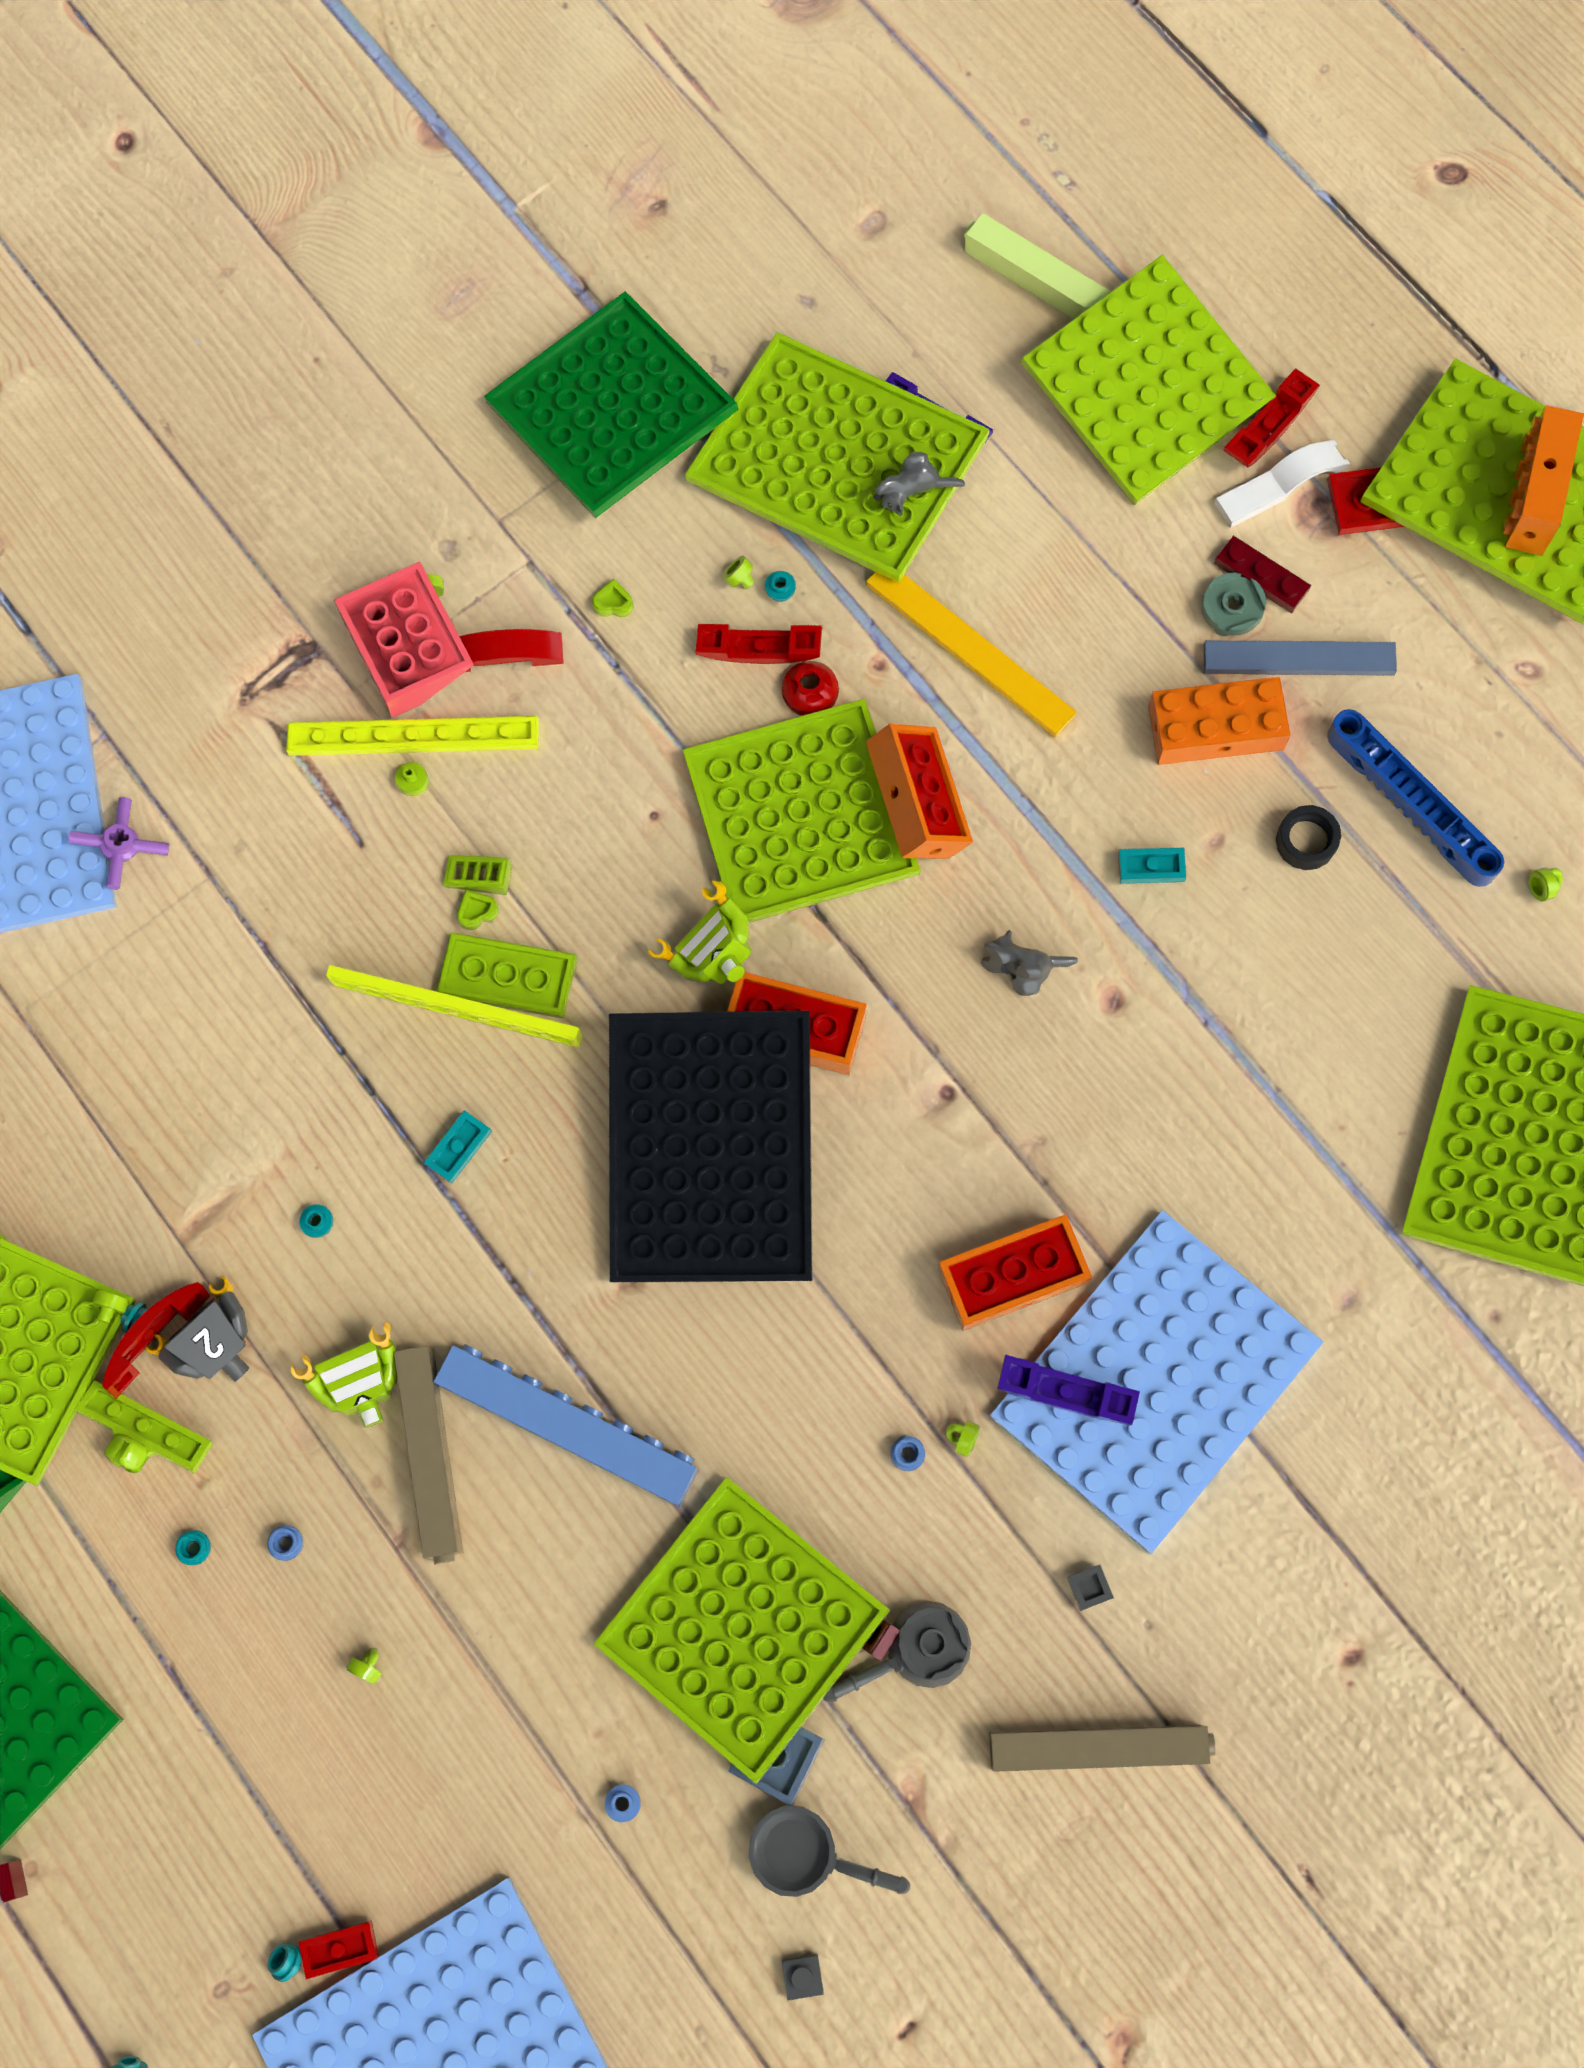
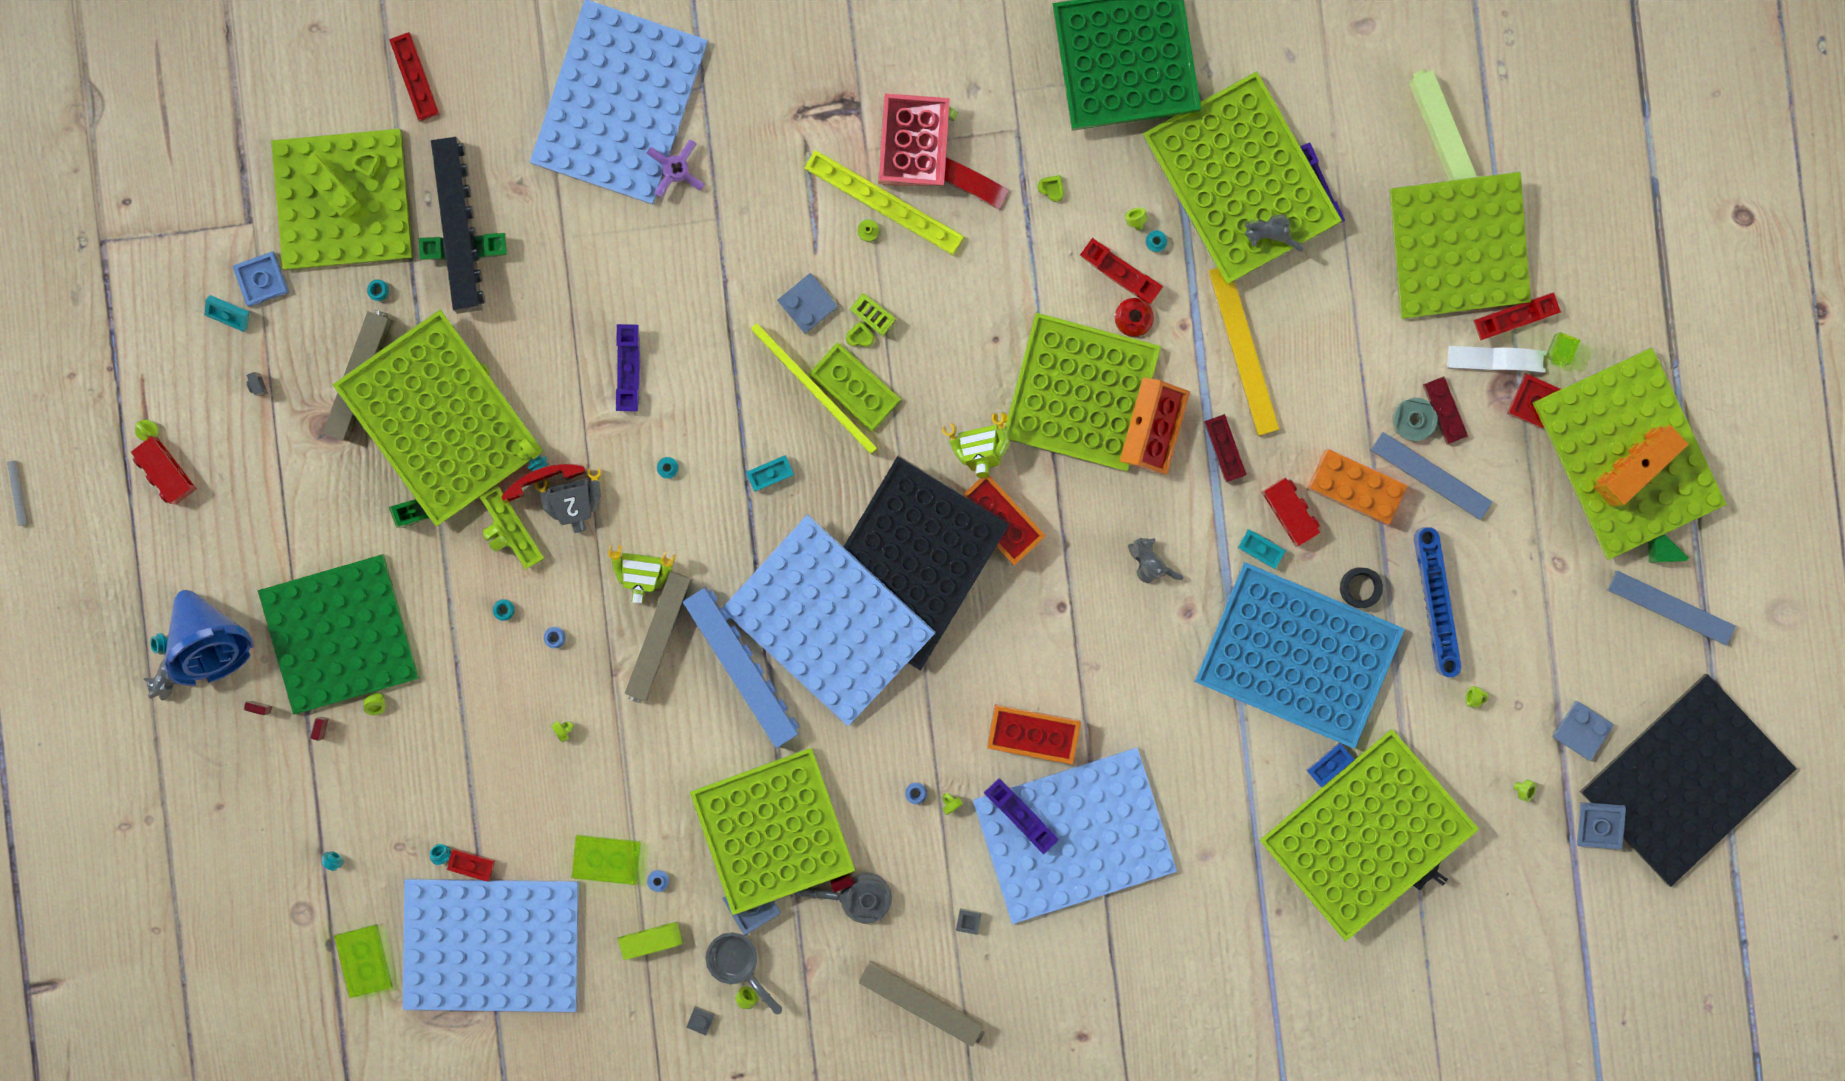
camera: 20 degrees right, 15 degrees up
(75, 1796) = (374, 704): none -> lime tile
(191, 1122) = (628, 367): none -> dark purple slope
(385, 909) = (807, 303): none -> sand blue plate
(531, 1819) = (606, 859): none -> clear neon green tile
(647, 1290) = (828, 620): none -> light blue plate
(660, 1900) = (650, 940): none -> lime beam
(848, 1898) = (746, 997): none -> lime tile
(1024, 772) = (1225, 448): none -> dark red plate
(1157, 798) = (1291, 511): none -> red brick
(1289, 967) = (1299, 655): none -> dark azure plate
(1351, 424) = (1562, 349): none -> clear neon green brick
(1424, 1079) = (1330, 765): none -> blue plate

